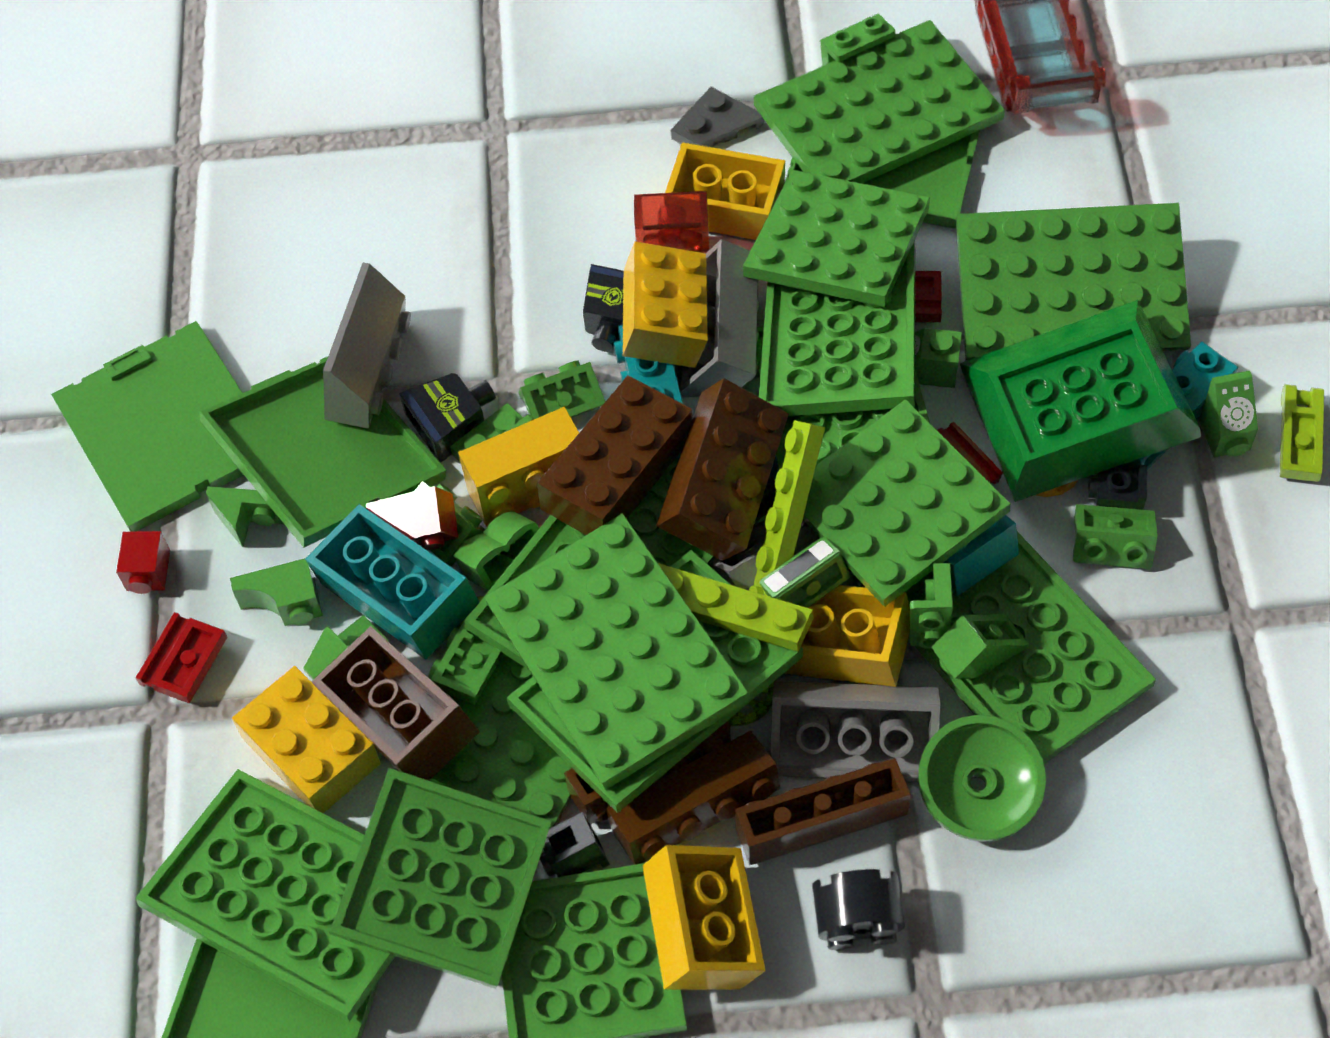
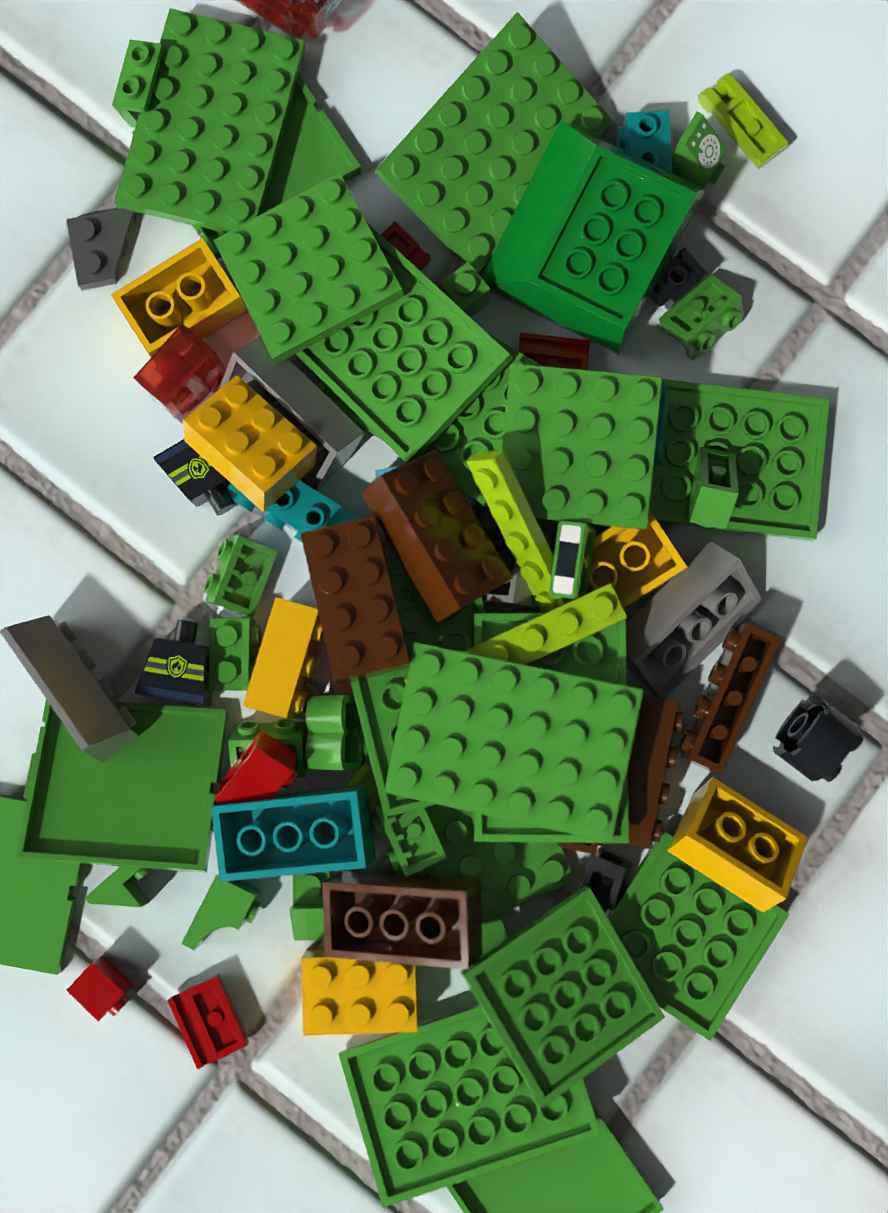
camera: 50 degrees left, 25 degrees up
(933, 615) = (672, 488): bright green bracket -> none
(989, 751) = (820, 572): bright green dish -> none

